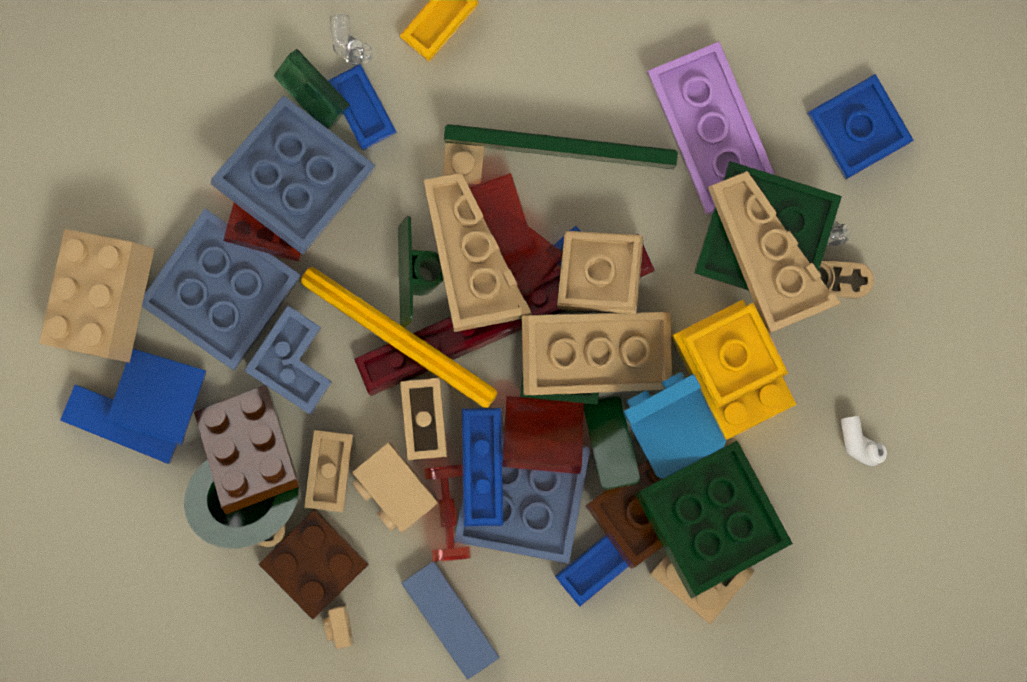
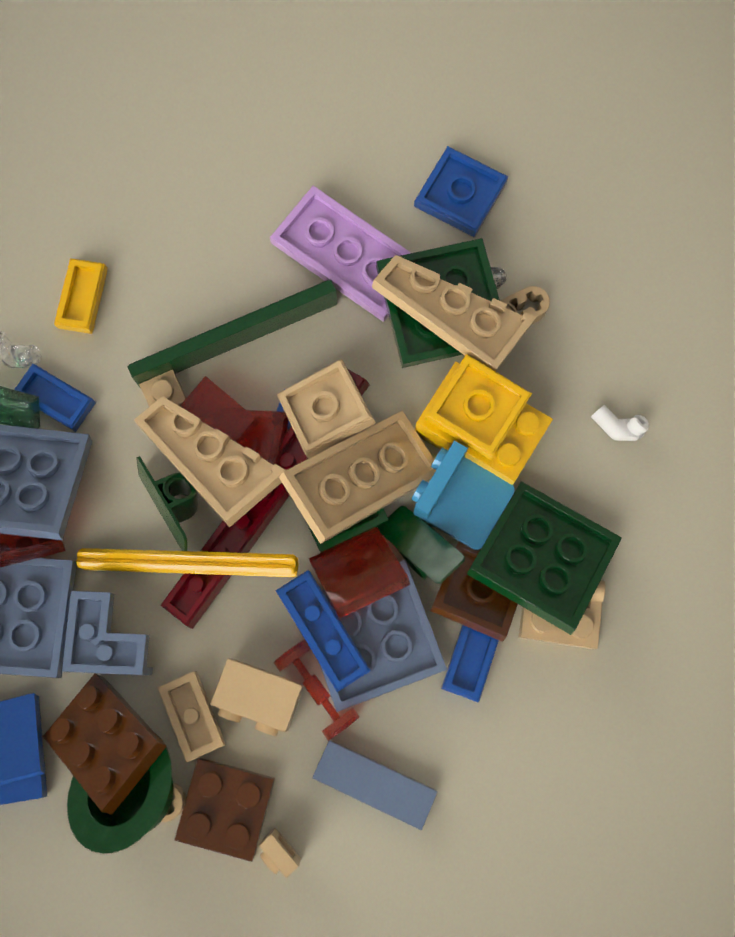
camera: 30 degrees left, 10 degrees down
(424, 419) = (247, 619): tan brick -> none

